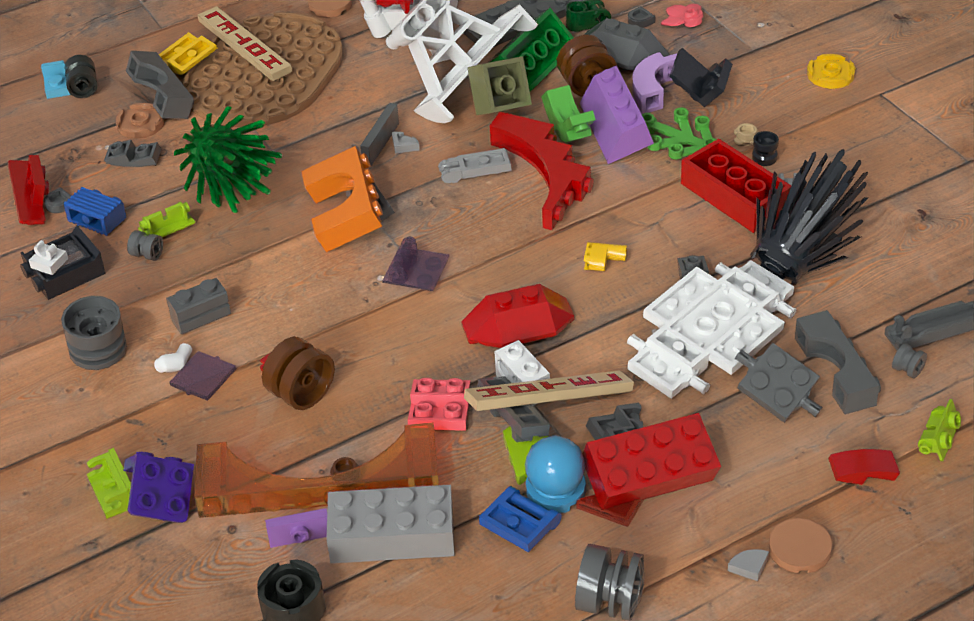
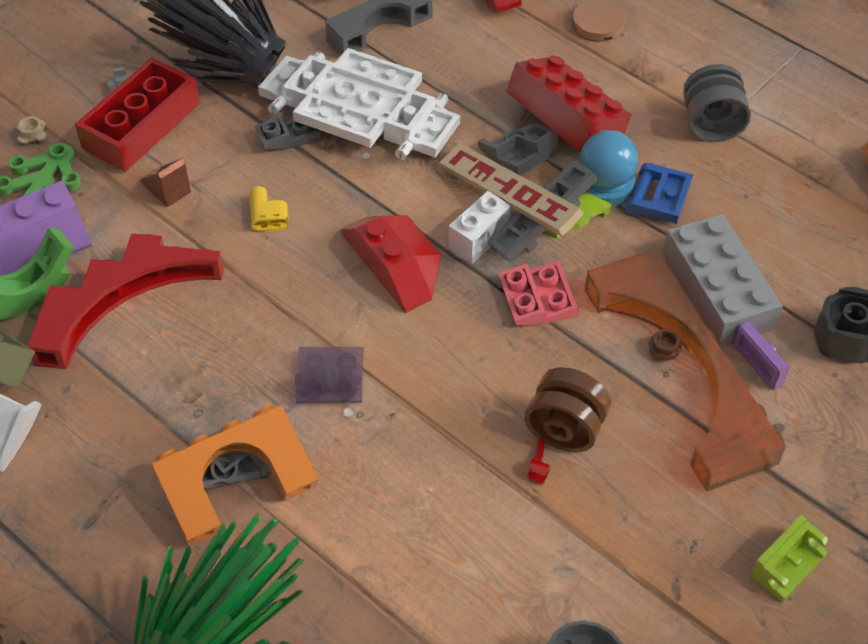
camera: 110 degrees left, 10 degrees up
(159, 487) = (772, 493): dark purple bracket -> none
(175, 361) = (572, 574): white arm -> none
(198, 305) = (477, 577): dark grey brick -> none
(202, 375) = (577, 541): clear purple piece -> none
(380, 132) = (74, 485): dark grey tile -> none
(404, 143) = (77, 462): light grey tile -> none
(474, 165) = (123, 361): light grey hinge -> none
(654, 200) = (168, 182): none -> copper slope
(749, 563) = (632, 43): light grey tile -> none
(765, 148) = (60, 107): black wheel -> none
(778, 382) = (425, 45): dark grey plate -> none

